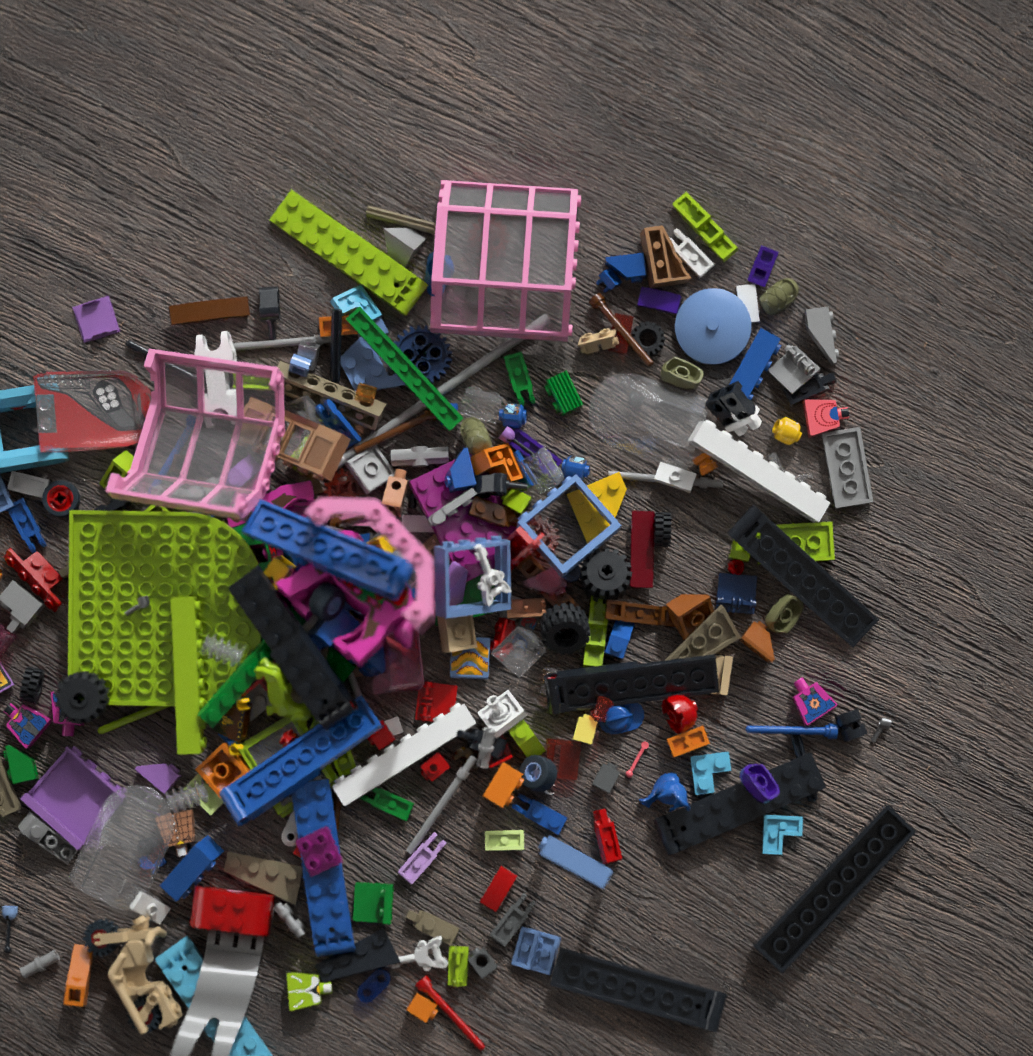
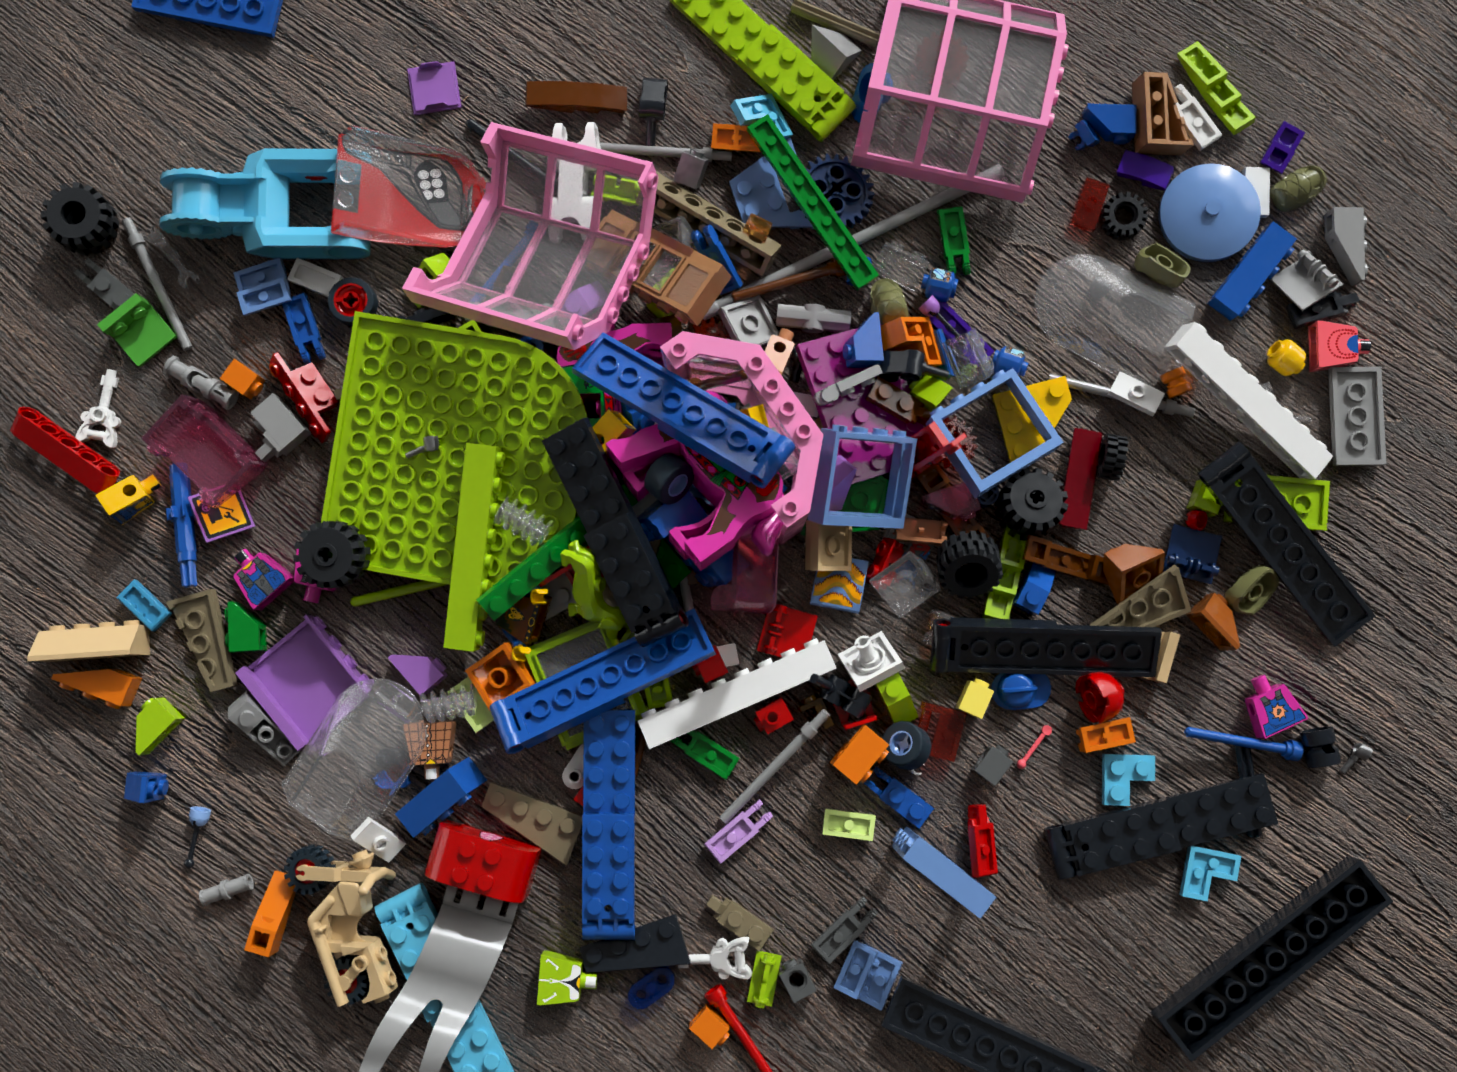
camera: 10 degrees right, 0 degrees up
(31, 684) = (274, 529): black tyre -> none
(284, 913) = (562, 893): light grey plate -> none
(287, 738) = (590, 649): red plate -> none
(300, 365) = (680, 178): medium blue brick -> none
(319, 851) = (607, 804): magenta hinge -> none
(335, 352) = (729, 160): black axle -> none
(373, 902) = (667, 878): green bracket -> none
(485, 747) = (845, 702): light grey pin -> none
(489, 578) = (885, 482): white piece -> none
(498, 888) = (831, 886): red slope -> none
(564, 393) = (1008, 267): green brick -> none
(589, 341) = (1071, 205): tan hinge -> none
(597, 713) = (1000, 683): clear red bush -> none
(598, 302) = (1068, 160): reddish brown piece -> none
(668, 791) = (1071, 795): blue piece -> none
(733, 409) = (1227, 316): black hips -> none
(759, 782) = (1197, 805): dark purple piece -> none

